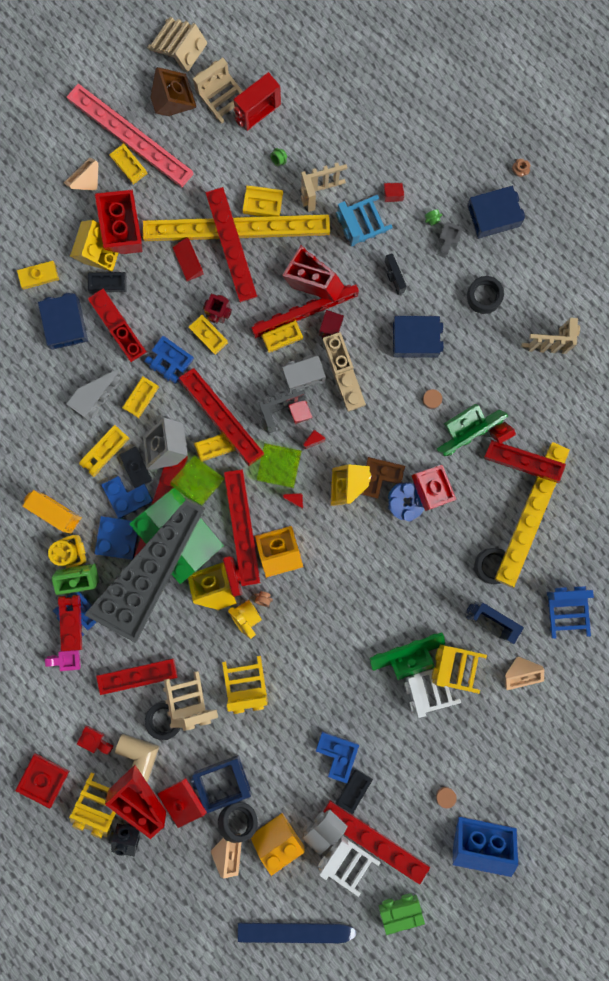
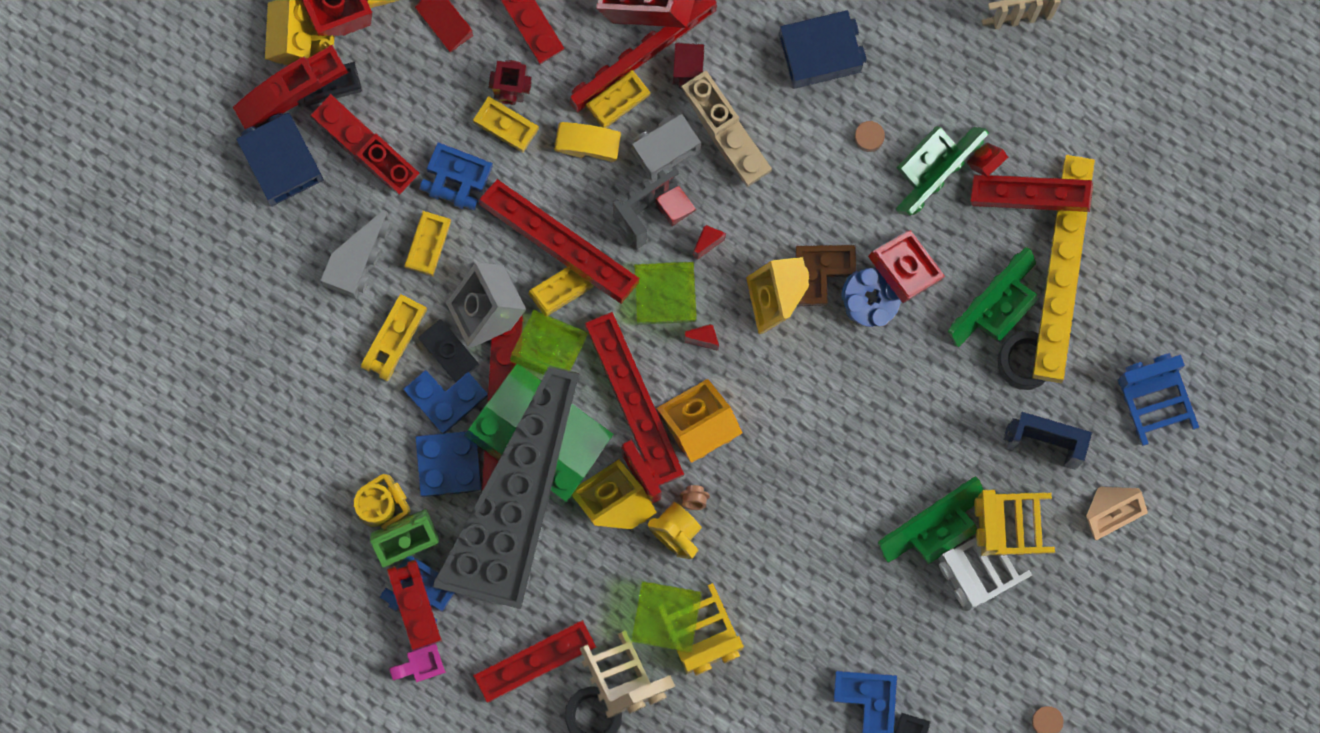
camera: 15 degrees left, 5 degrees down
(38, 275) = (218, 99): yellow plate -> none
(51, 511) = (342, 445): light orange window -> none
(80, 276) = (288, 86): none -> red slope
(224, 671) = (666, 617): none -> clear neon green plate
(256, 357) = (587, 140): none -> yellow slope
(487, 526) = (1000, 304): none -> green bracket

